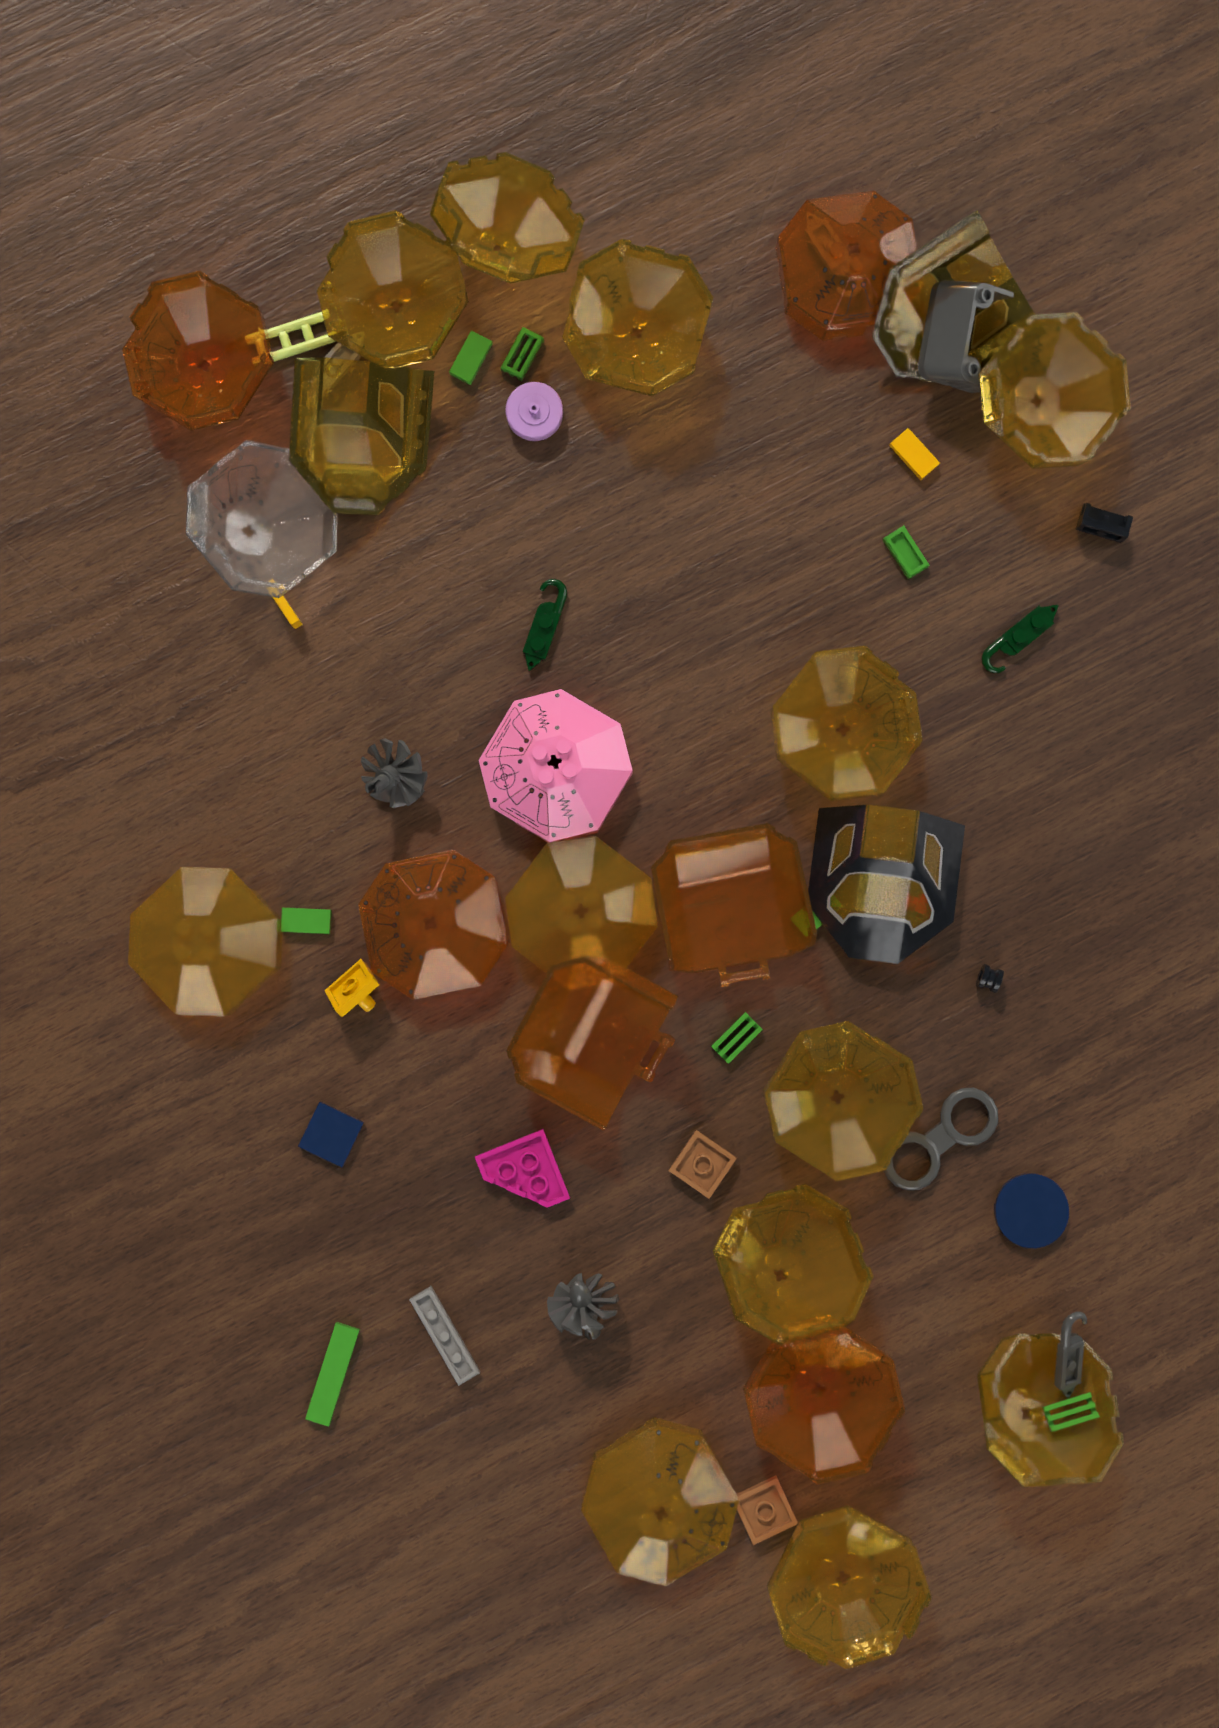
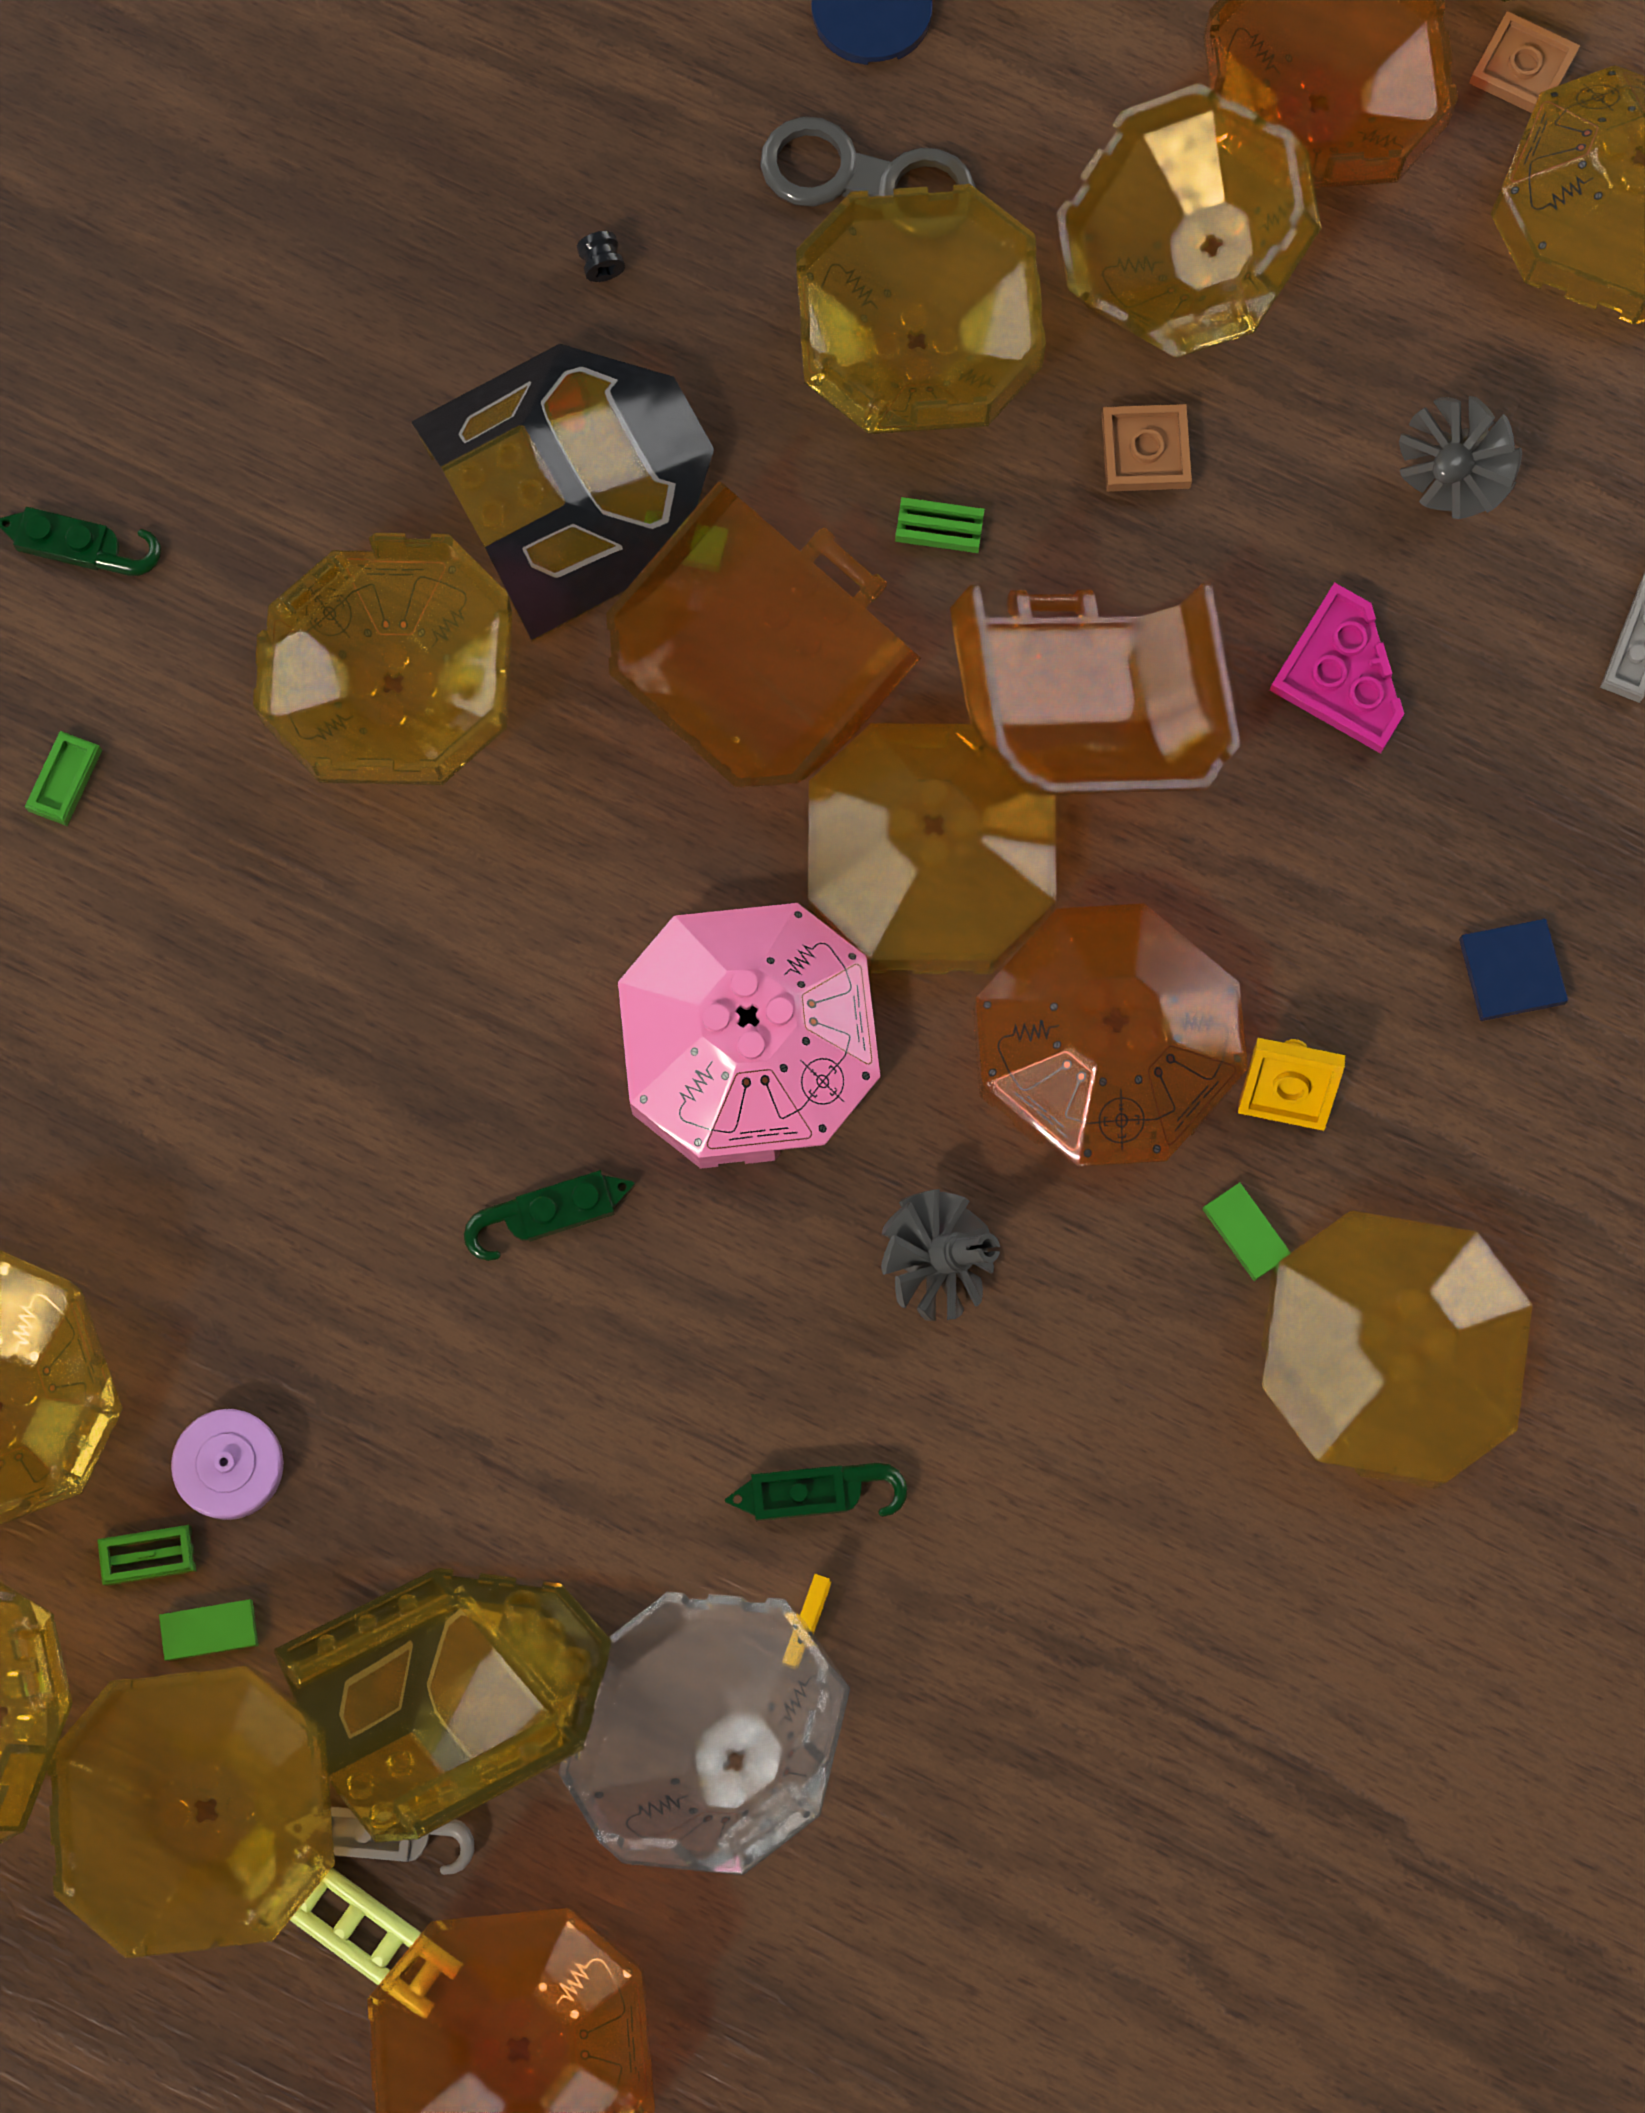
camera: 130 degrees left, 10 degrees down
(336, 648) = (815, 1491): none -> dark green plate

